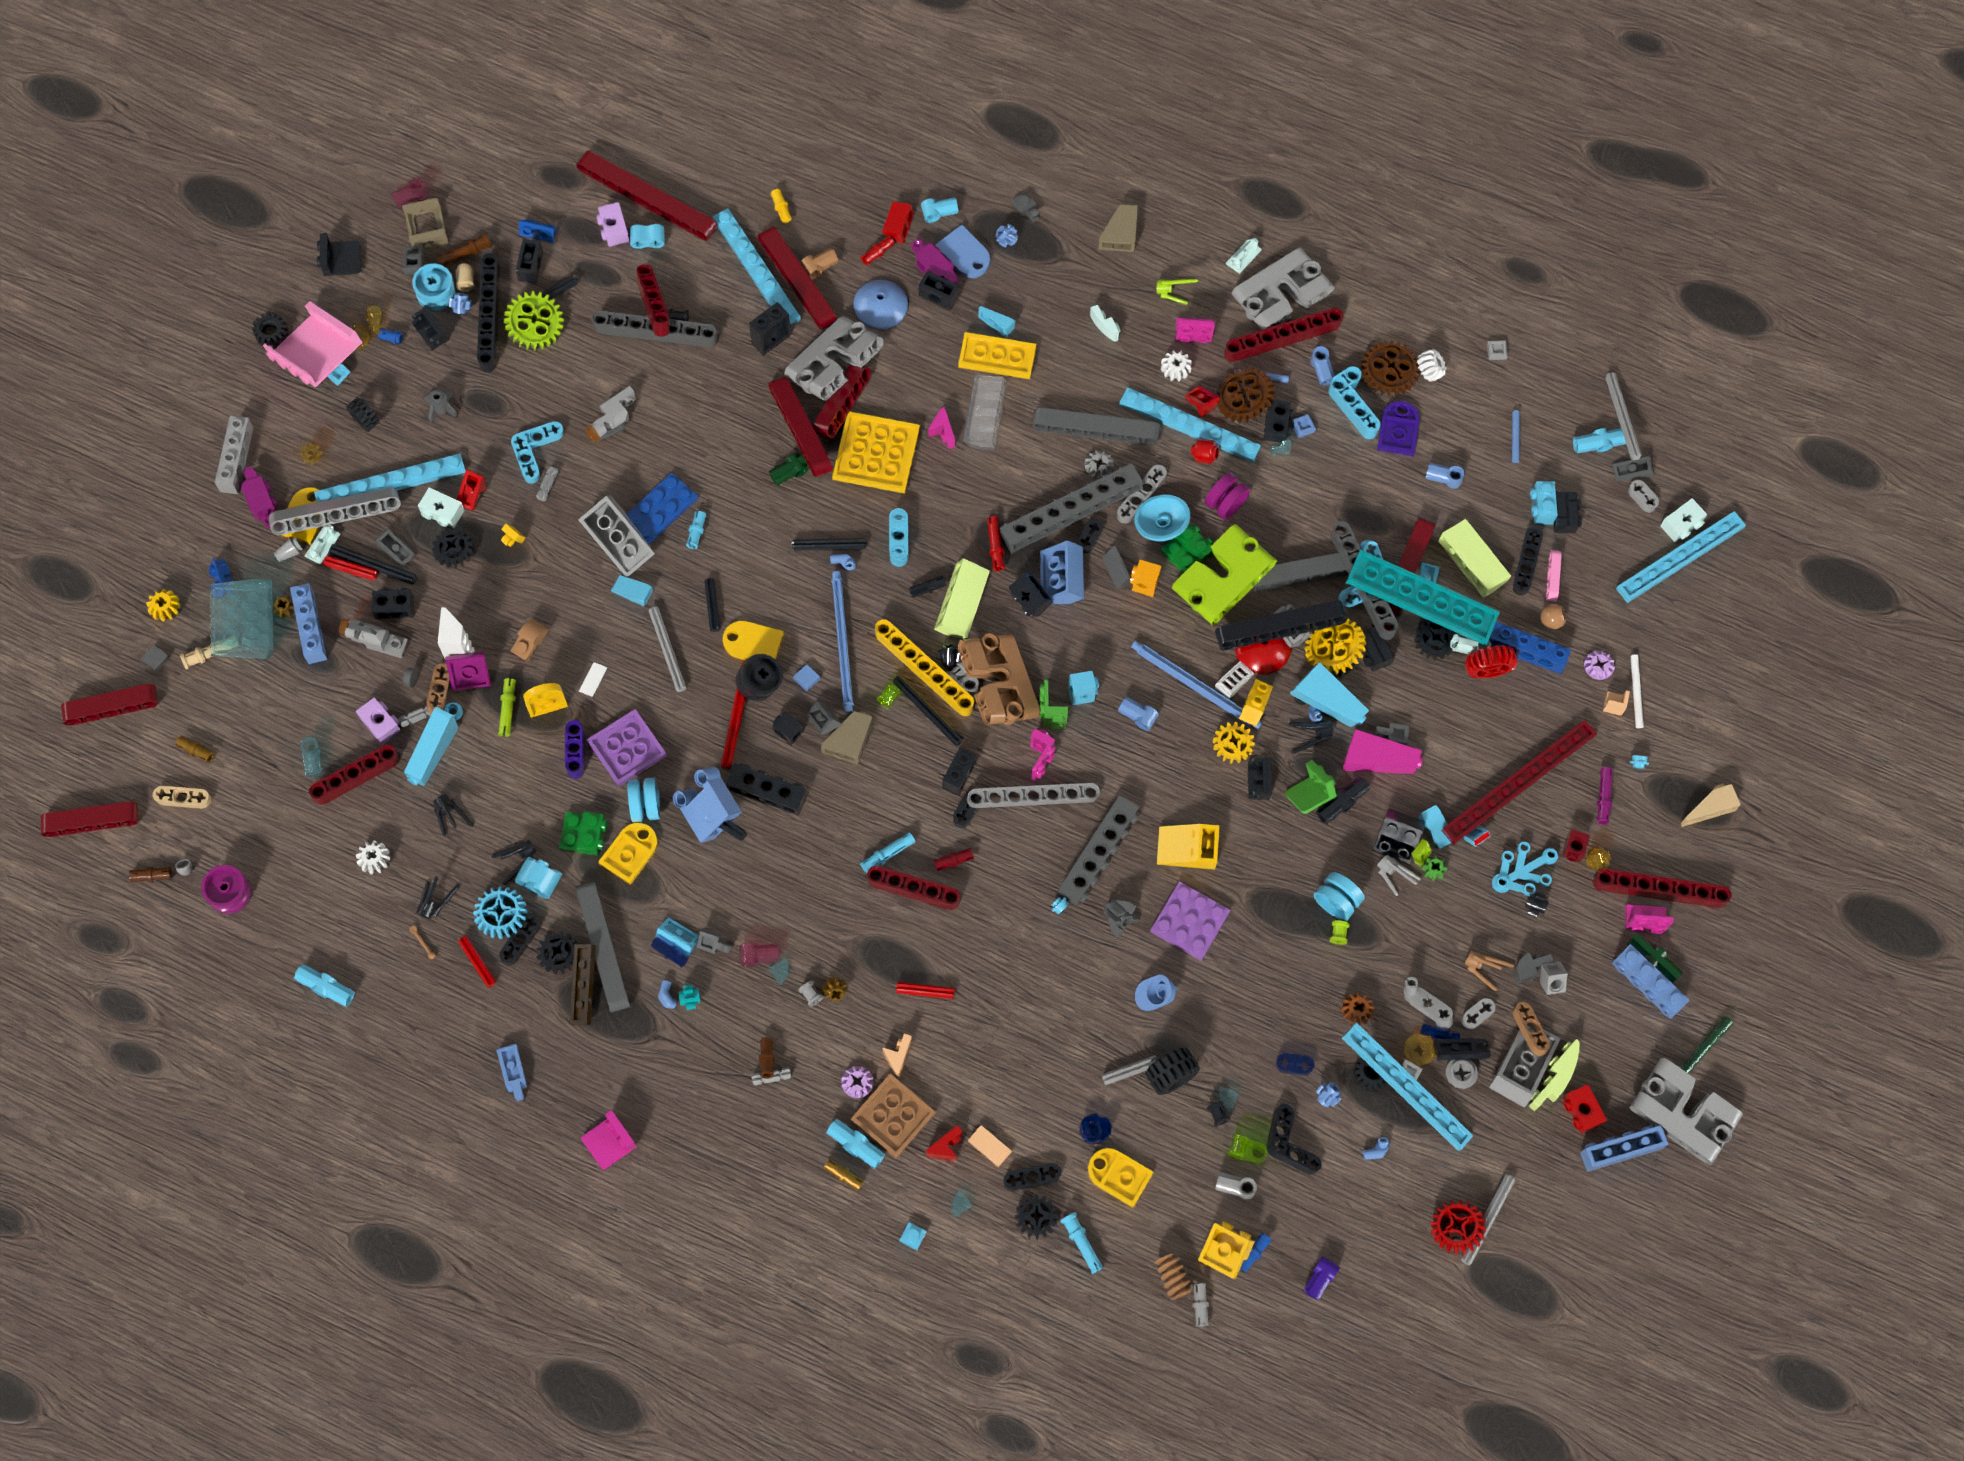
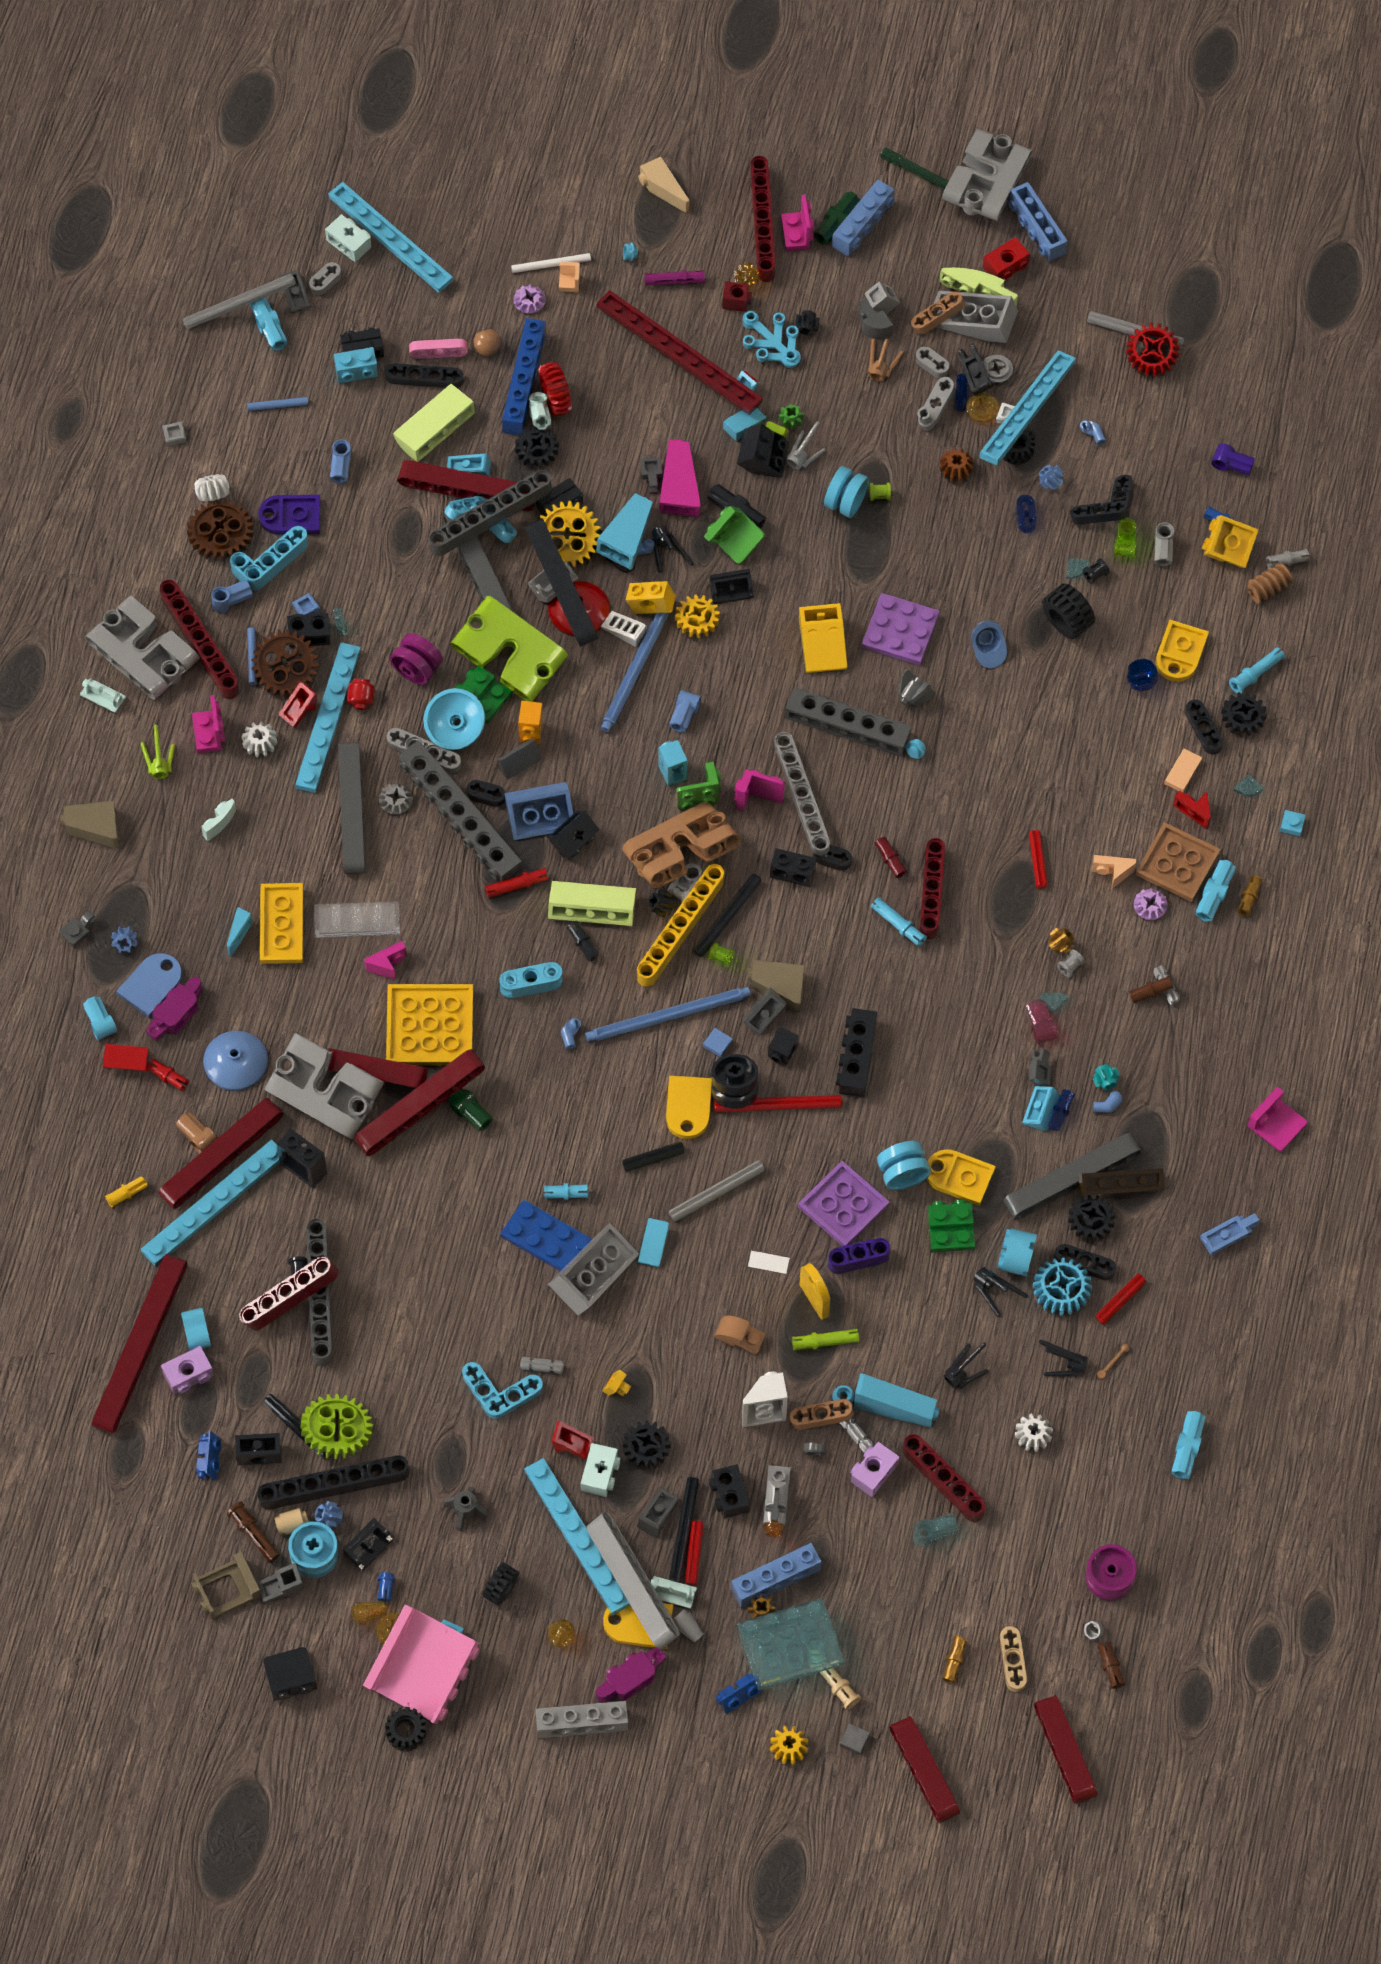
camera: 100 degrees left, 5 degrees down
(409, 193) = (188, 1616): clear pink piece -> none
(468, 671) = (797, 1383): magenta tile -> none
(613, 416) = (442, 1311): light grey plate -> none
(710, 809) = (900, 1093): medium blue piece -> none
(828, 544) = (553, 1052): black axle -> none
(938, 290) = (212, 994): black brick -> none
(1128, 1070) = (1071, 657): light grey axle -> none
(1422, 597) = (504, 450): teal plate -> none

